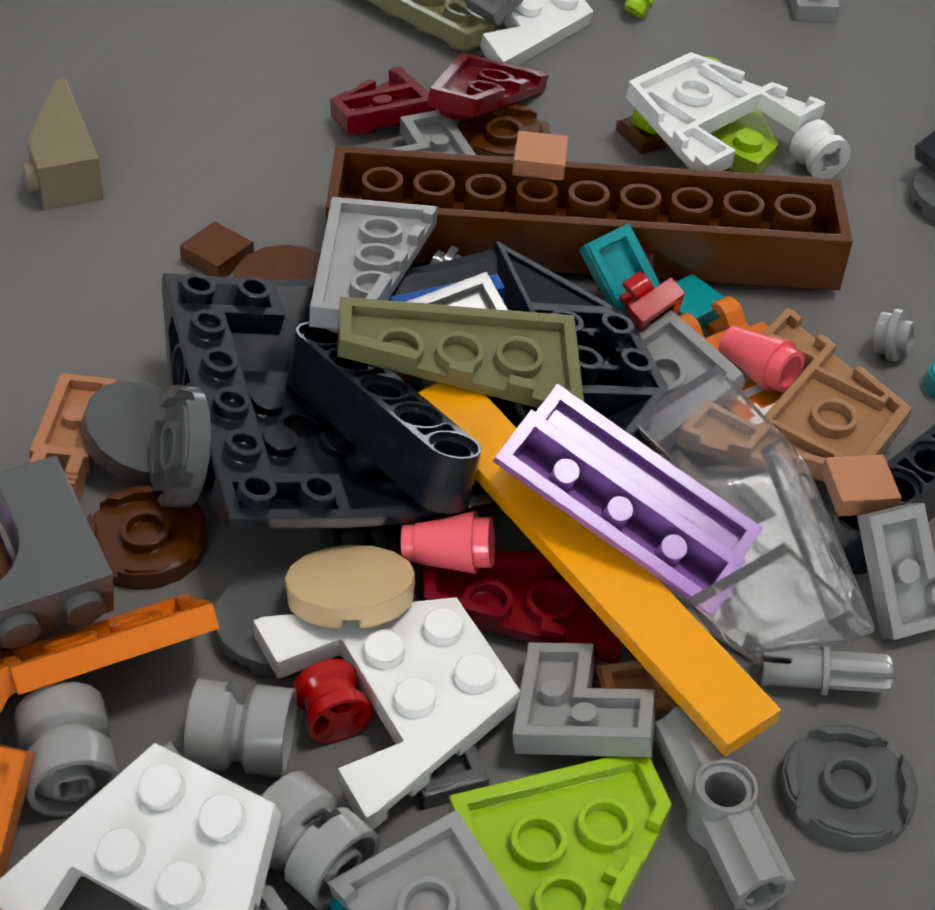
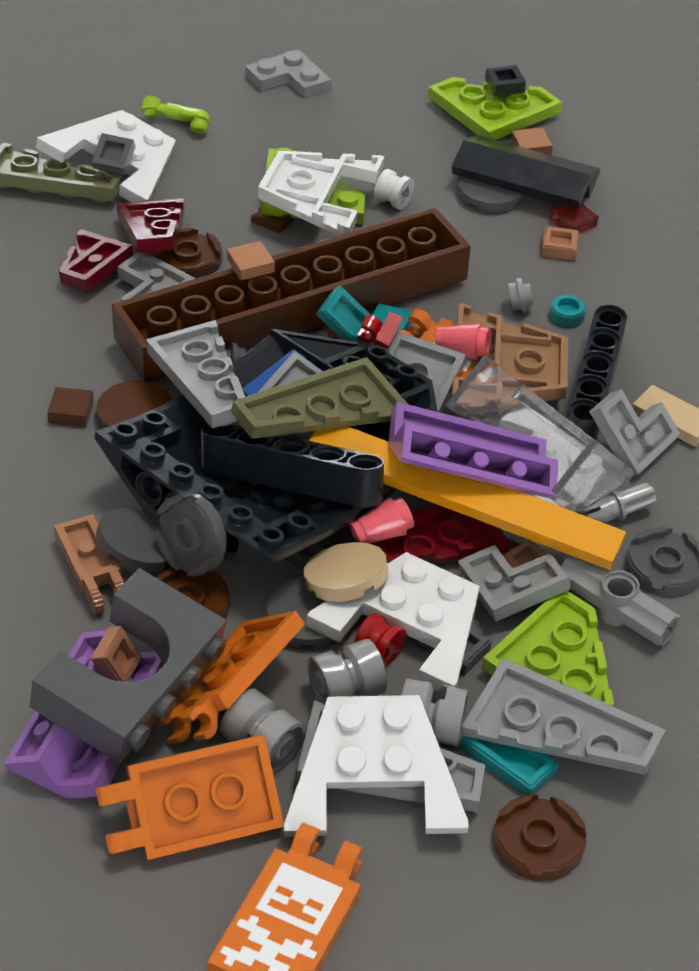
camera: 30 degrees left, 0 degrees up
(860, 484) = (576, 393): nougat tile -> none

